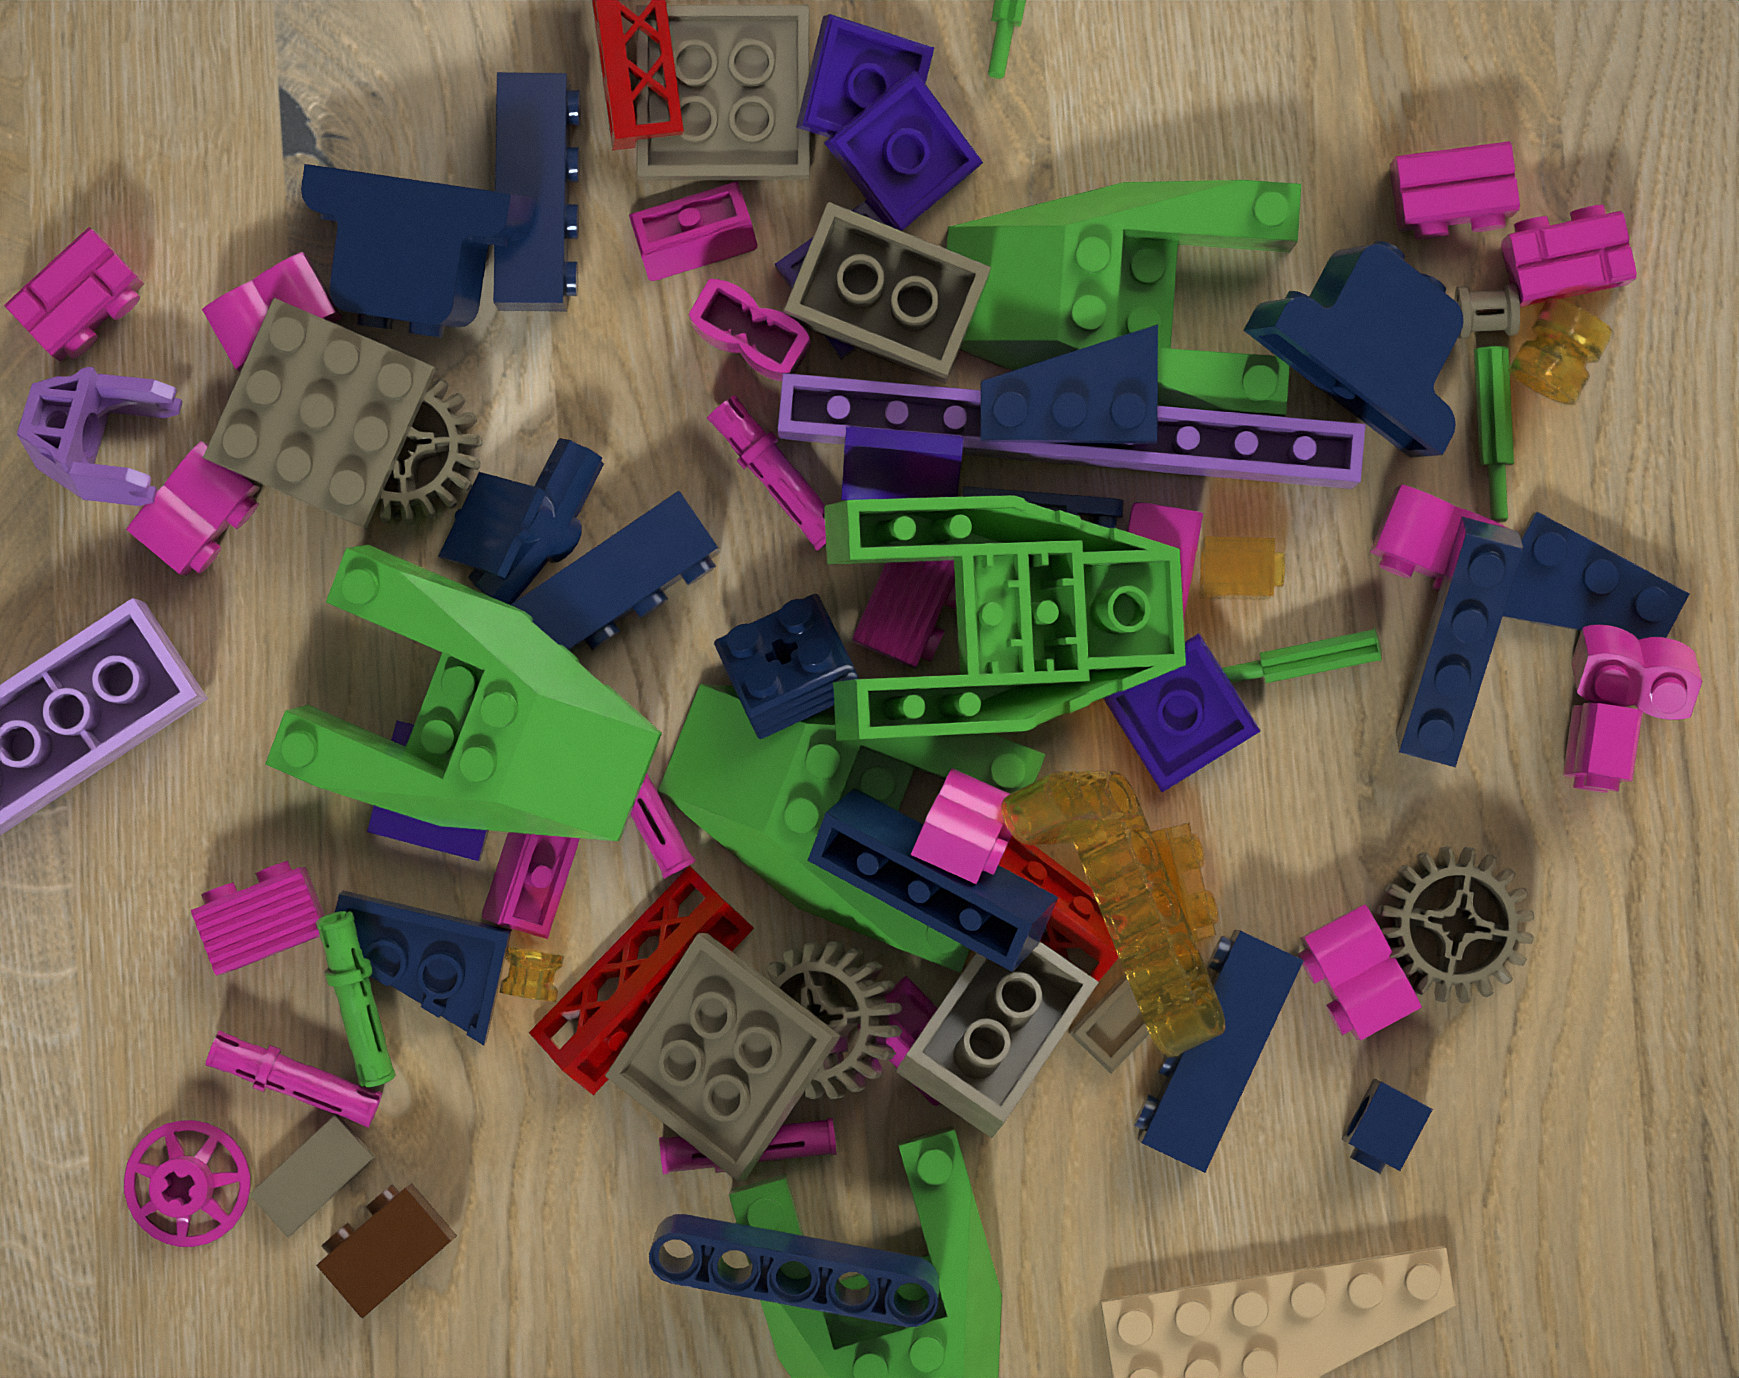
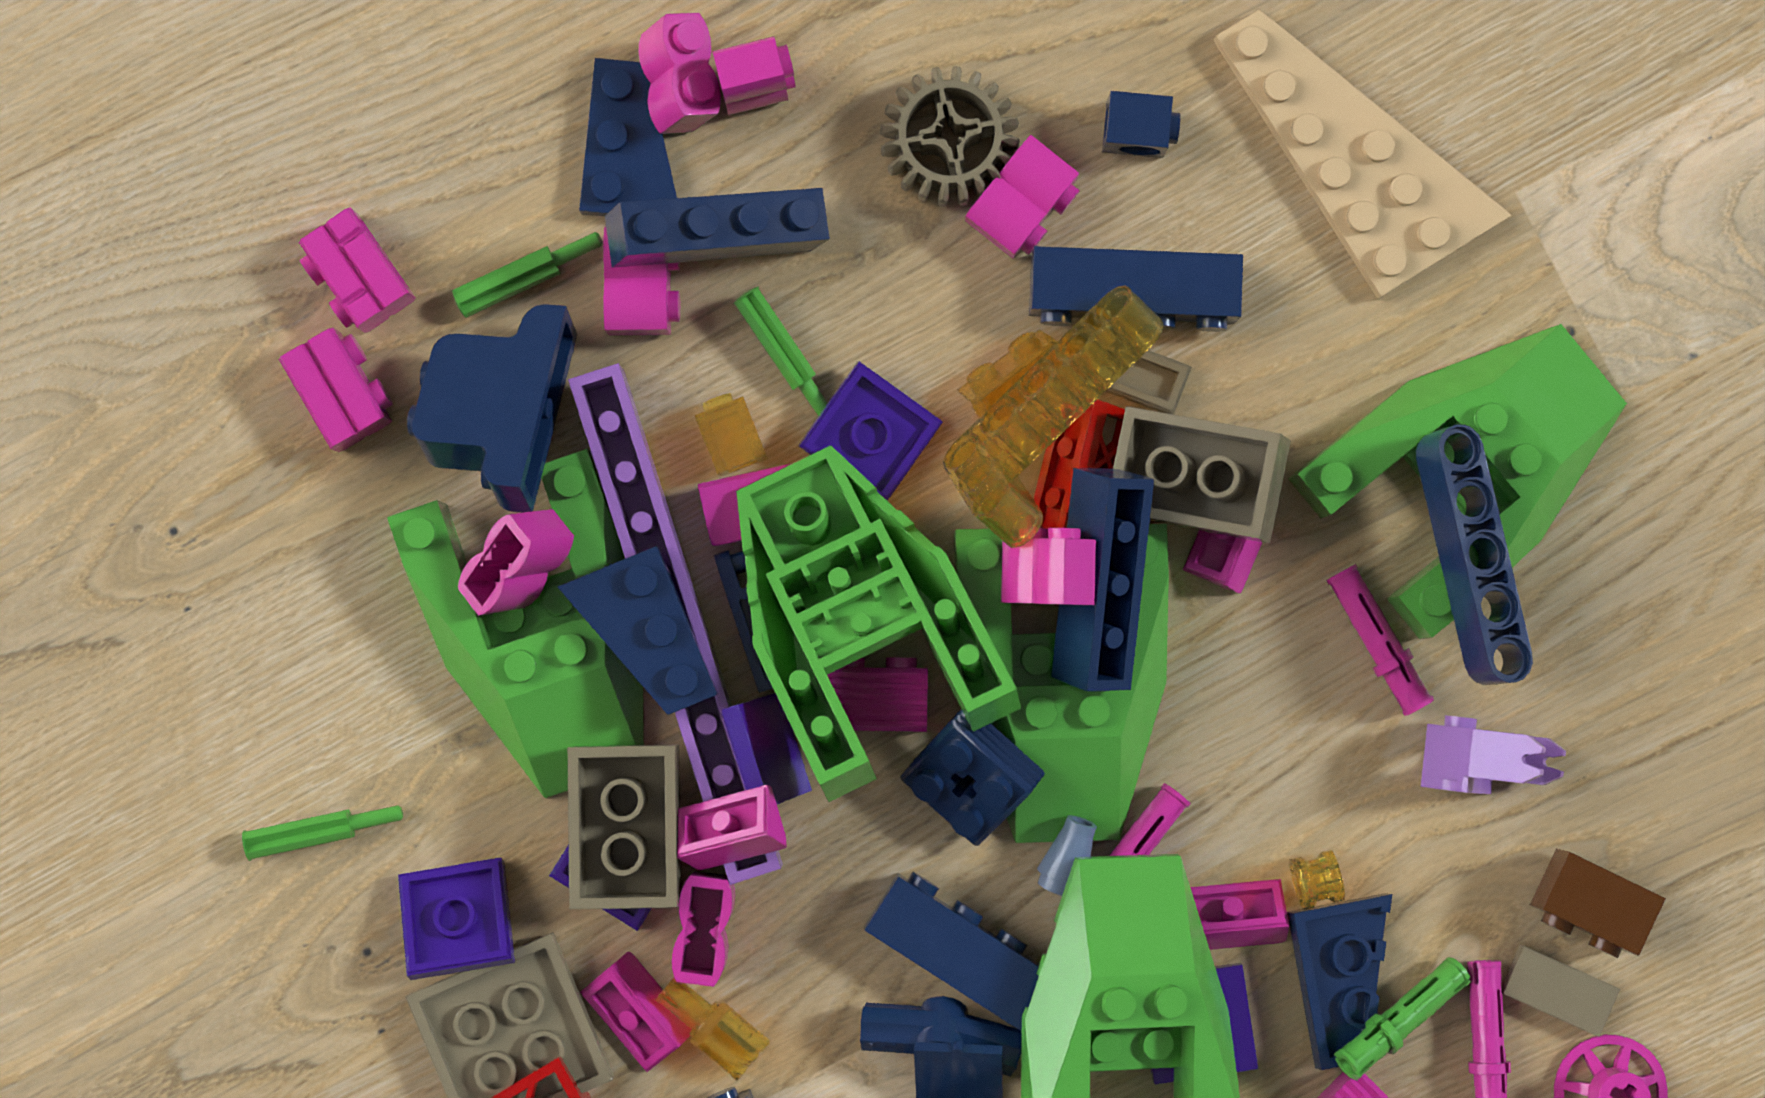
camera: 115 degrees left, 0 degrees up
(583, 1188) = (1471, 758): none -> medium lavender piece
(609, 1024) = (1288, 779): red fence -> none
(643, 300) = (715, 1028): none -> clear yellow arm
(677, 740) = (1071, 842): none -> sand blue cone
(722, 1056) = (1320, 691): dark tan plate -> none
(768, 463) = (809, 861): dark pink pin -> none
(821, 996) = (1289, 603): dark tan gear -> none
(839, 395) = (730, 828): none -> dark pink slope
(903, 152) = (498, 862): dark purple tile -> none
(1201, 293) = (515, 561): none -> dark pink brick
(1504, 300) = (415, 308): dark tan bush -> none
(1562, 348) = (437, 244): clear yellow wheel -> none

